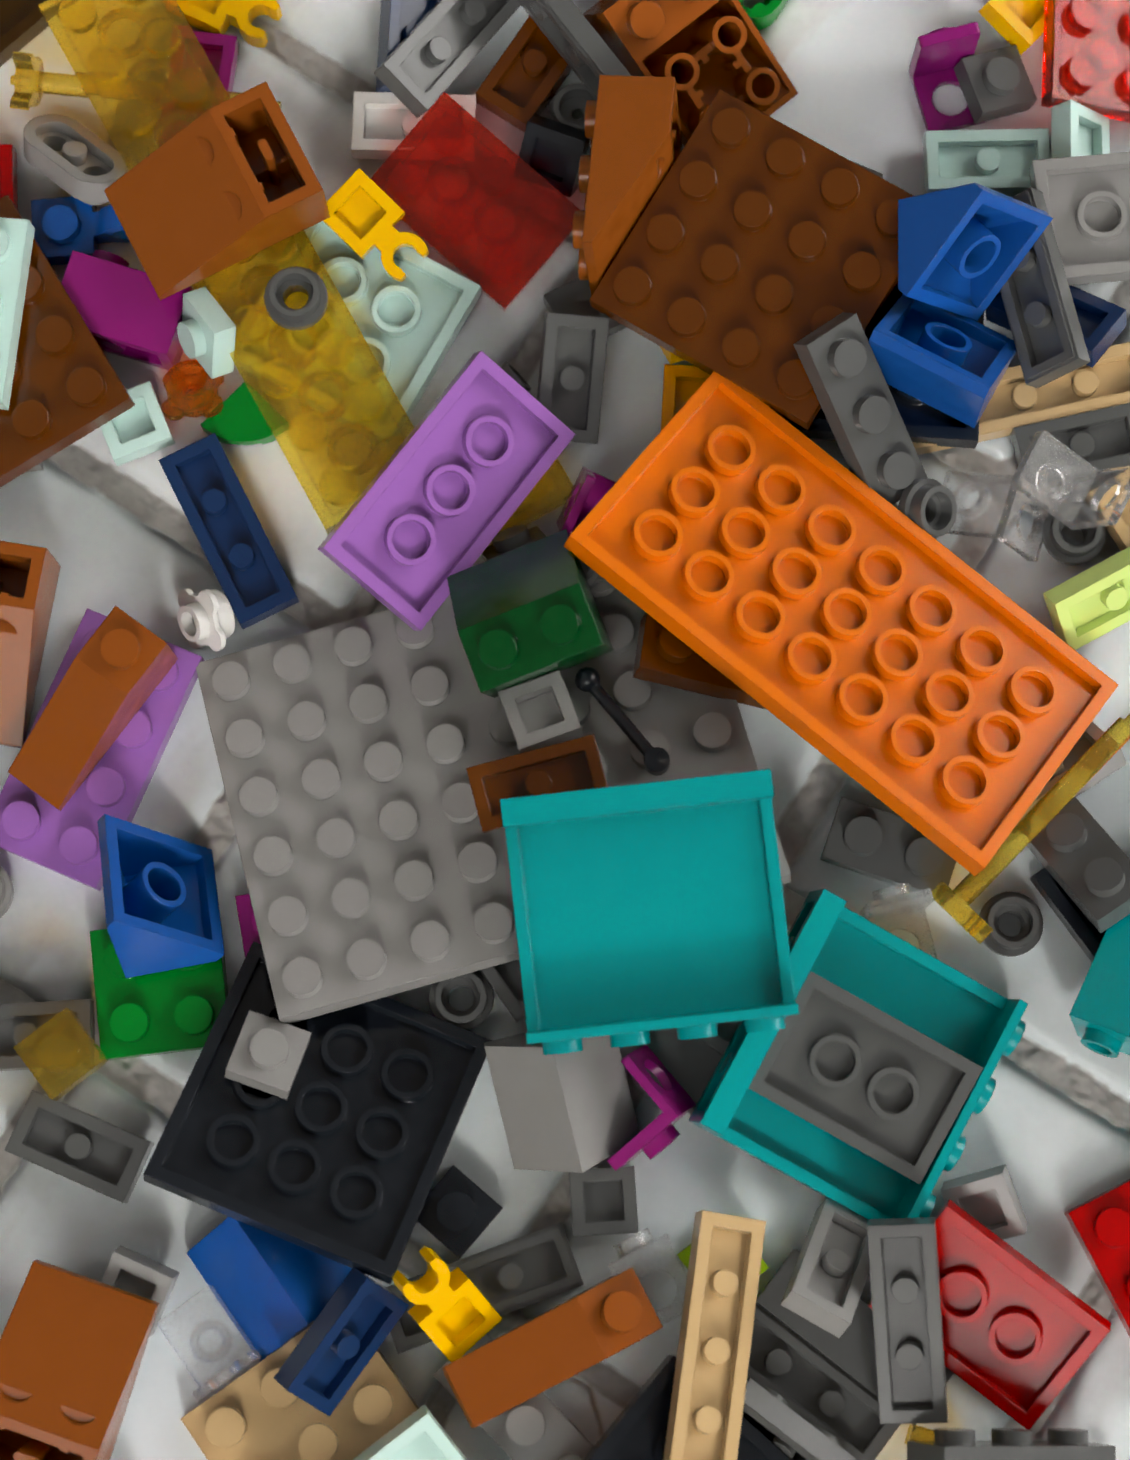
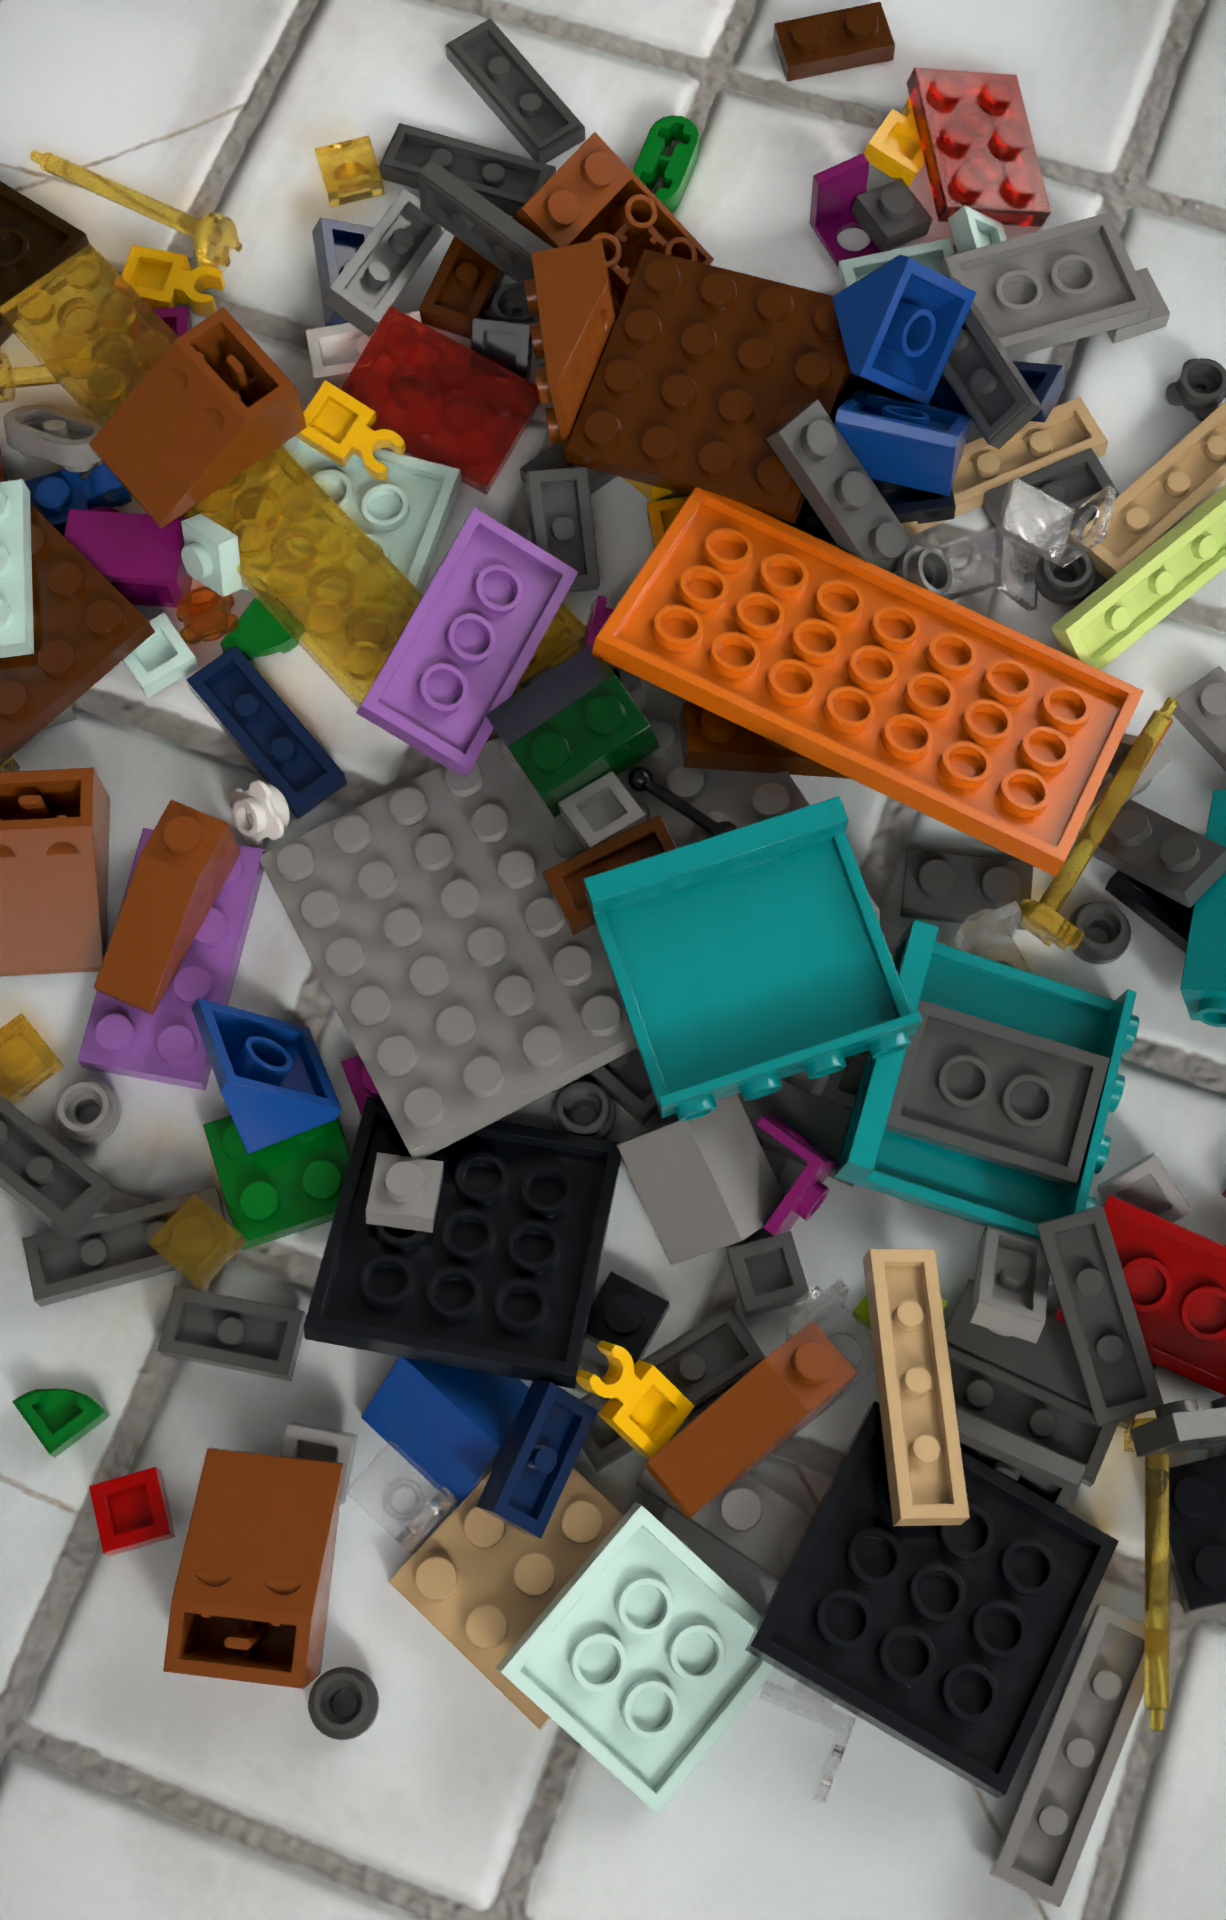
camera: 10 degrees left, 10 degrees down
(290, 281) = (284, 486): dark grey plate -> none

